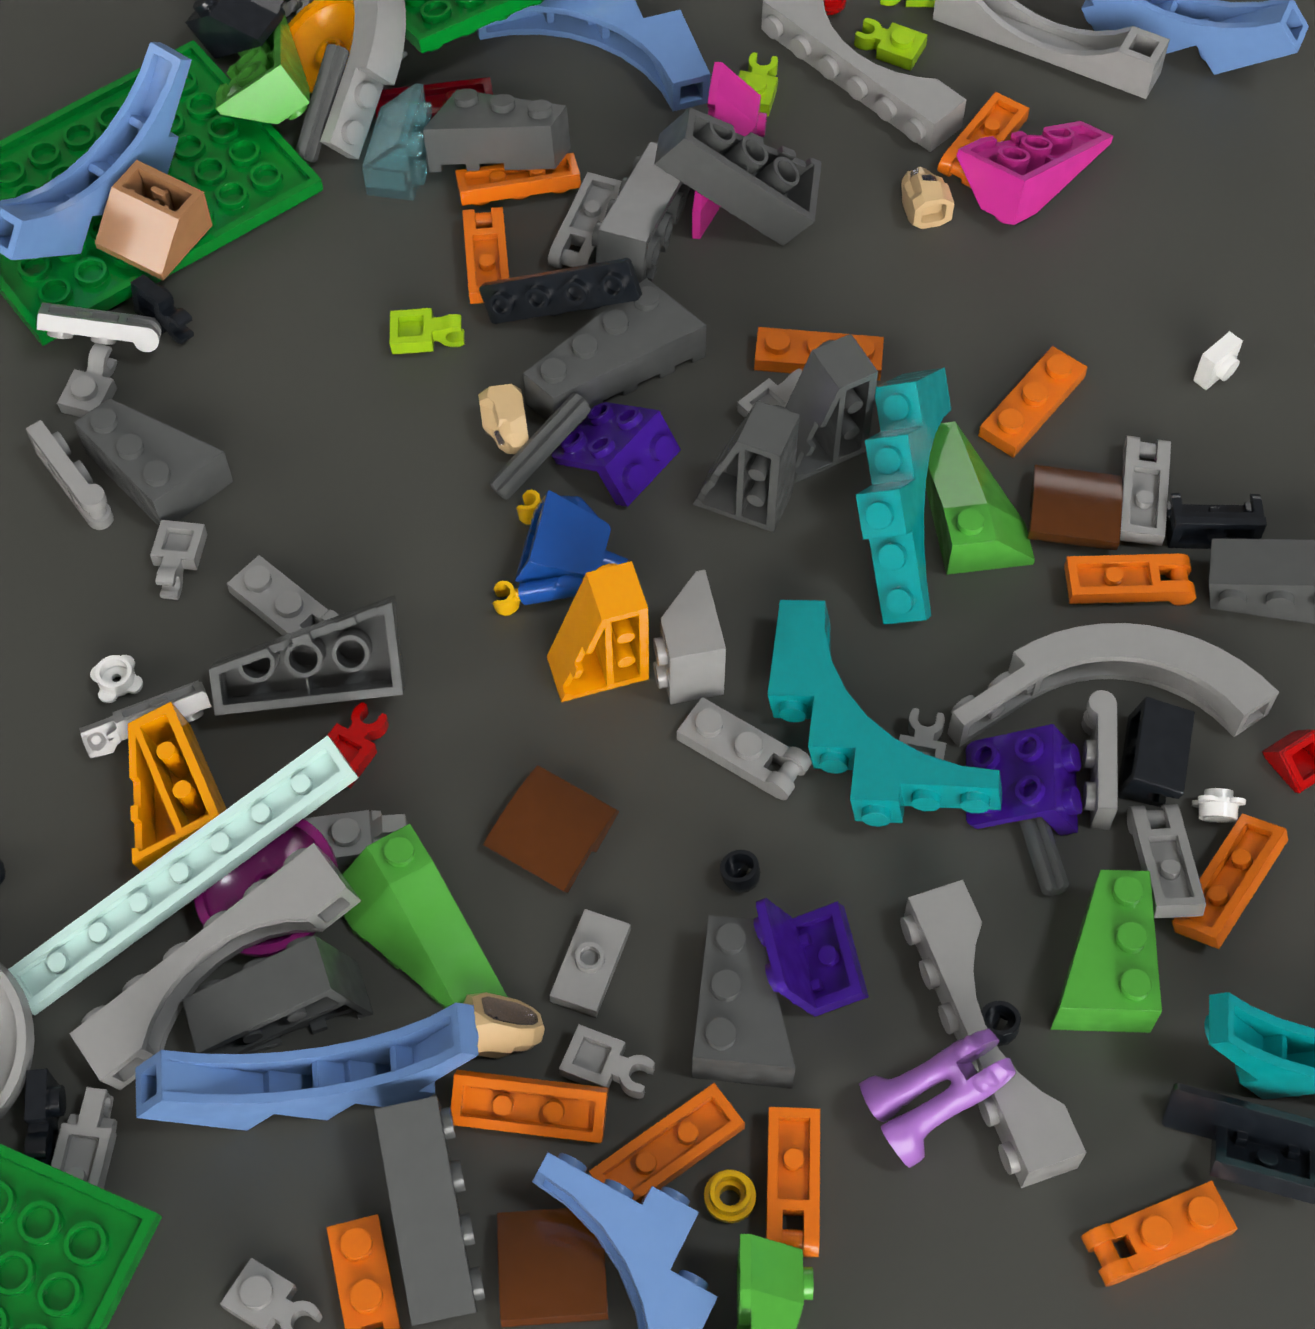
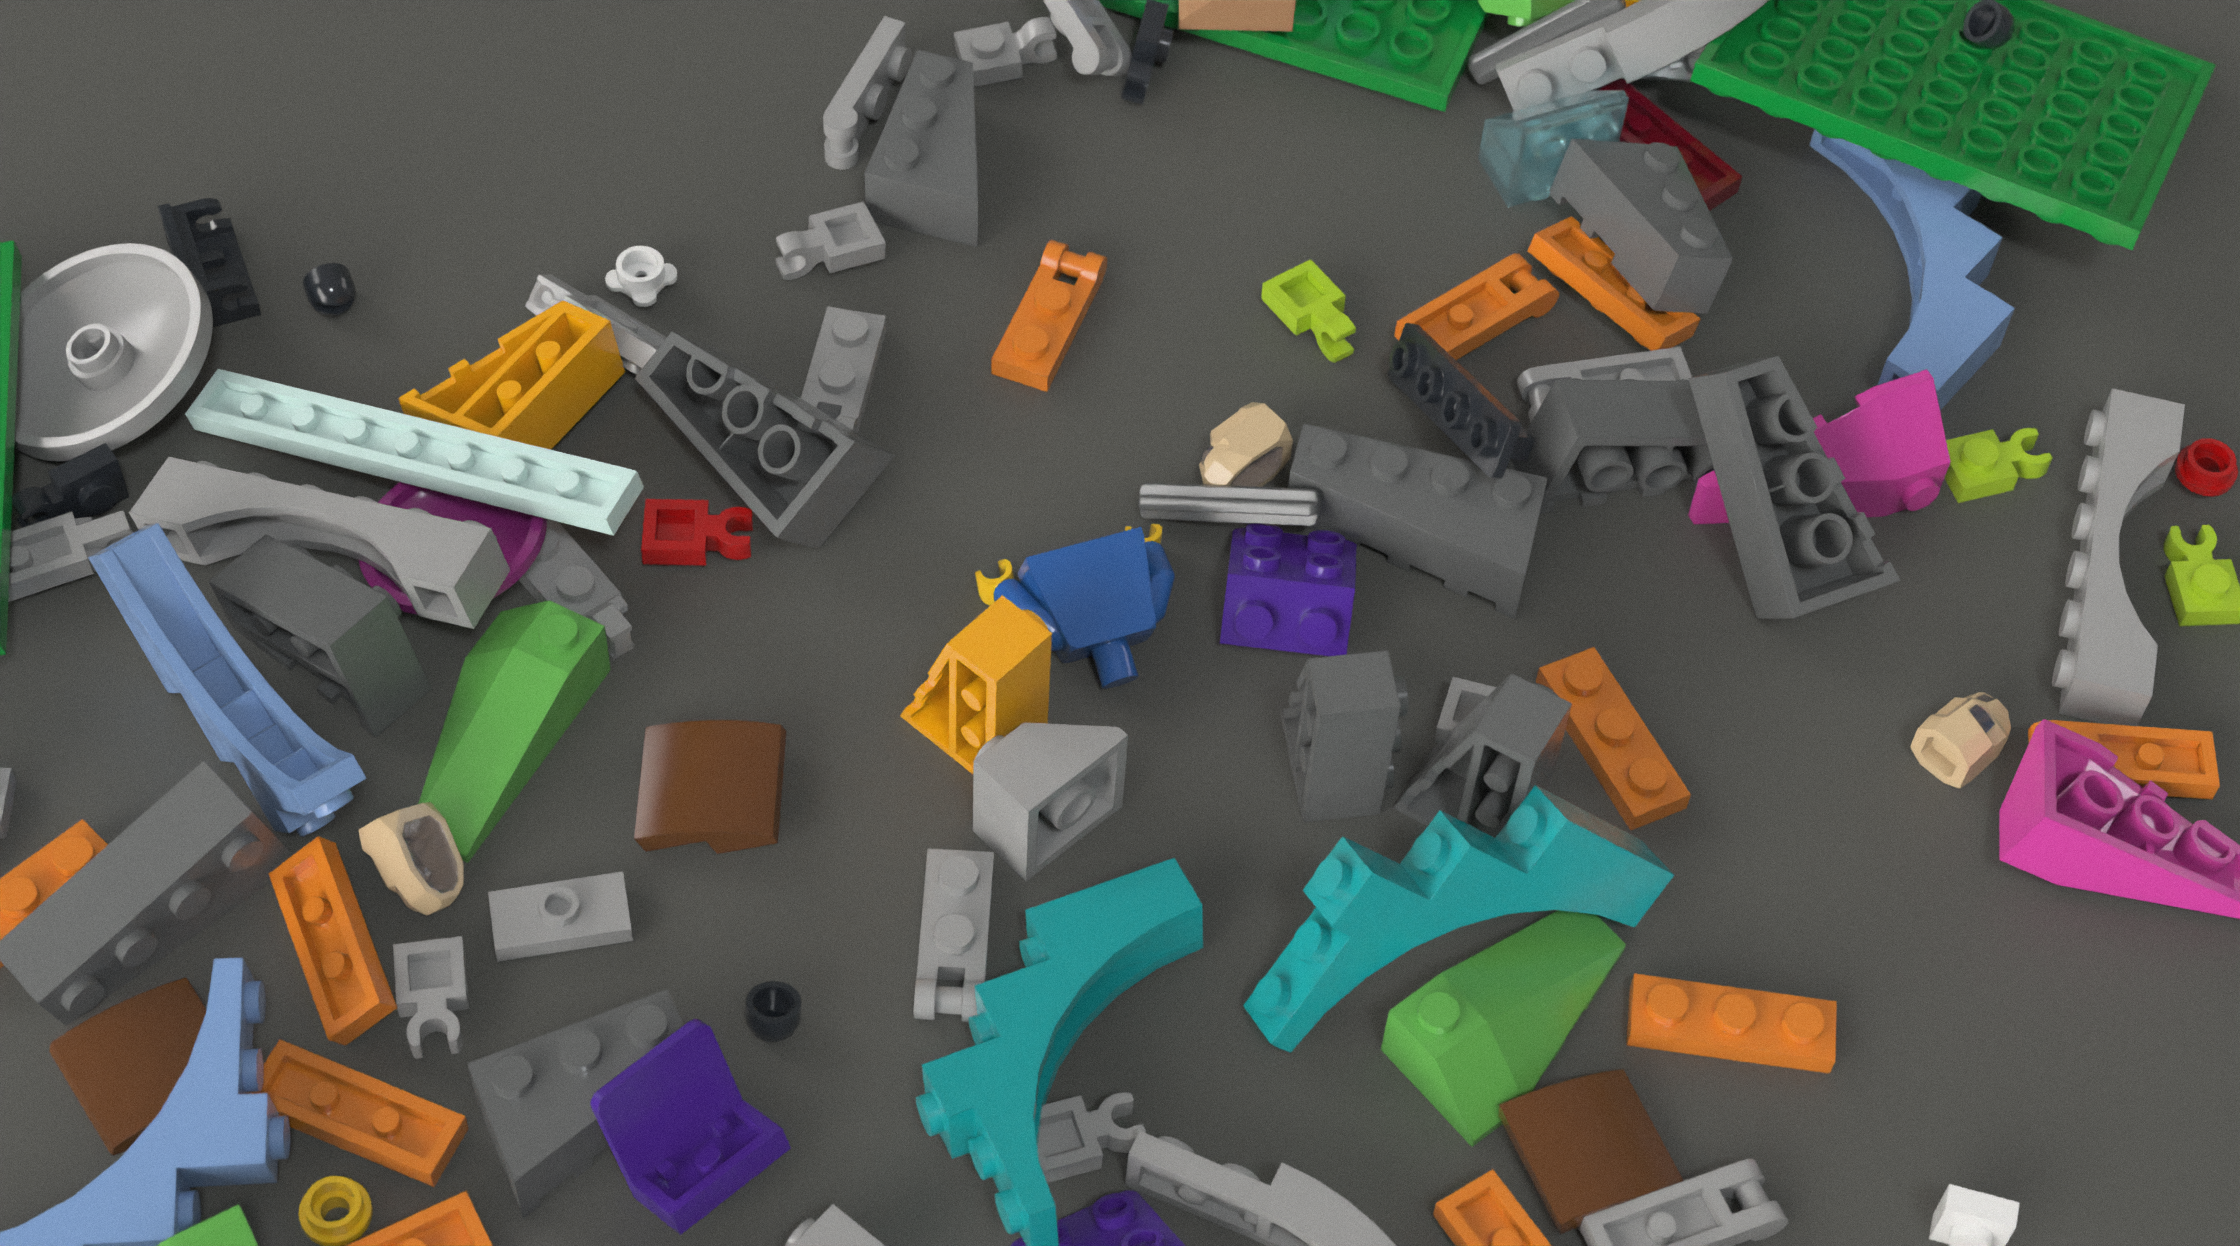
camera: 55 degrees right, 5 degrees down
(322, 469) = (1048, 317): none -> orange plate

